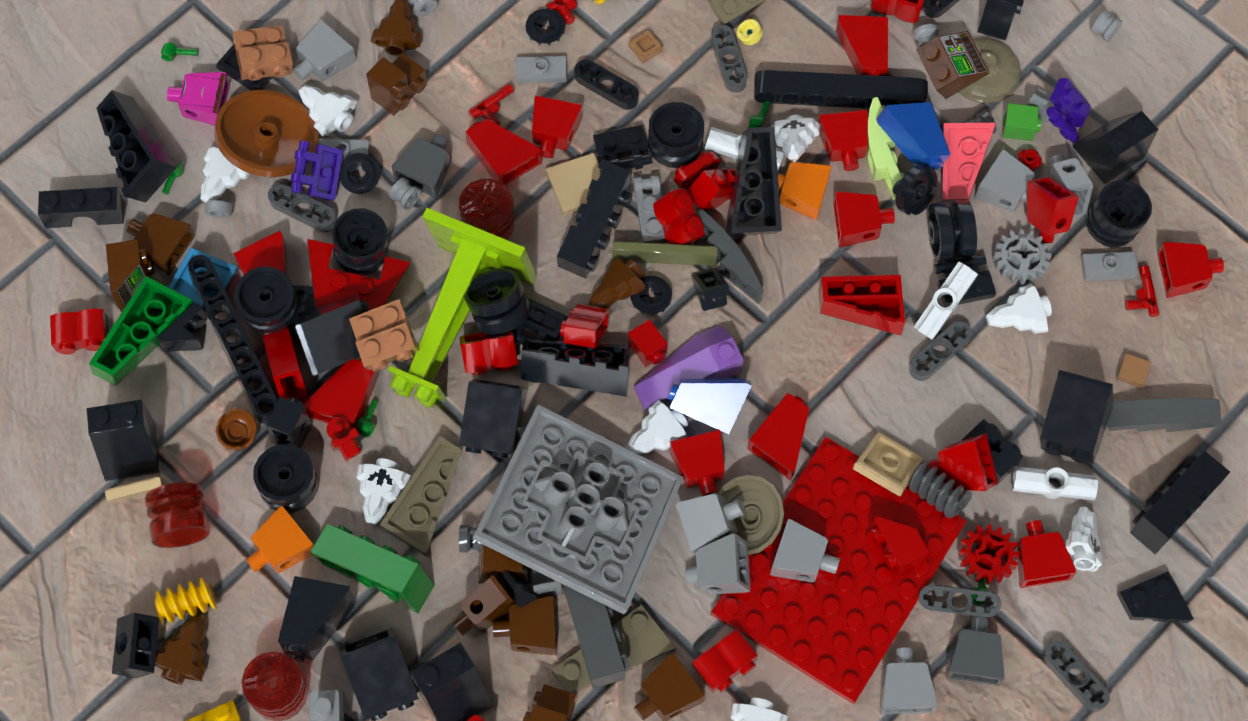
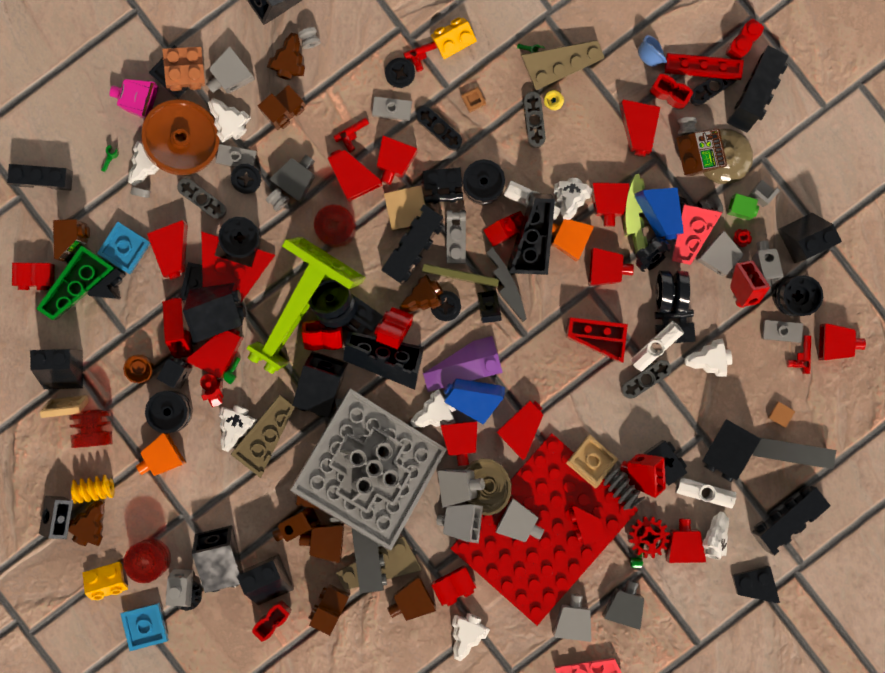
camera: 10 degrees right, 20 degrees up
(135, 145) = (82, 132): black wedge -> none
(163, 239) = (96, 212): reddish brown torso -> none
(169, 50) = (114, 54): green hand -> none
(232, 326) = (133, 293): black beam -> none
(268, 285) = (154, 280): black wheel -> none
(313, 616) = (175, 516): black slope -> none
(324, 171) = (220, 174): dark purple plate -> none
(373, 565) = (222, 484): green wedge -> none
(384, 336) = (246, 324): nougat plate -> none
(465, 539) = (291, 471): dark grey wheel -> none
(518, 589) = (320, 519): black slope -> none
(648, 343) = (437, 345): red brick -> none
(678, 218) = (474, 252): red brick -> none
(688, 174) = (487, 214): red plate -> none
(757, 121) = (545, 177): green hand -> none
(837, 89) = (613, 160): black beam -> none
(938, 605) = (620, 560): dark grey beam -> none
(1025, 254) = (721, 308): light grey gear -> none
(1069, 109) = (781, 203): dark purple plate -> none
(1096, 687) = (702, 638): dark grey beam -> none
(1106, 25) = (825, 134): light grey wheel -> none

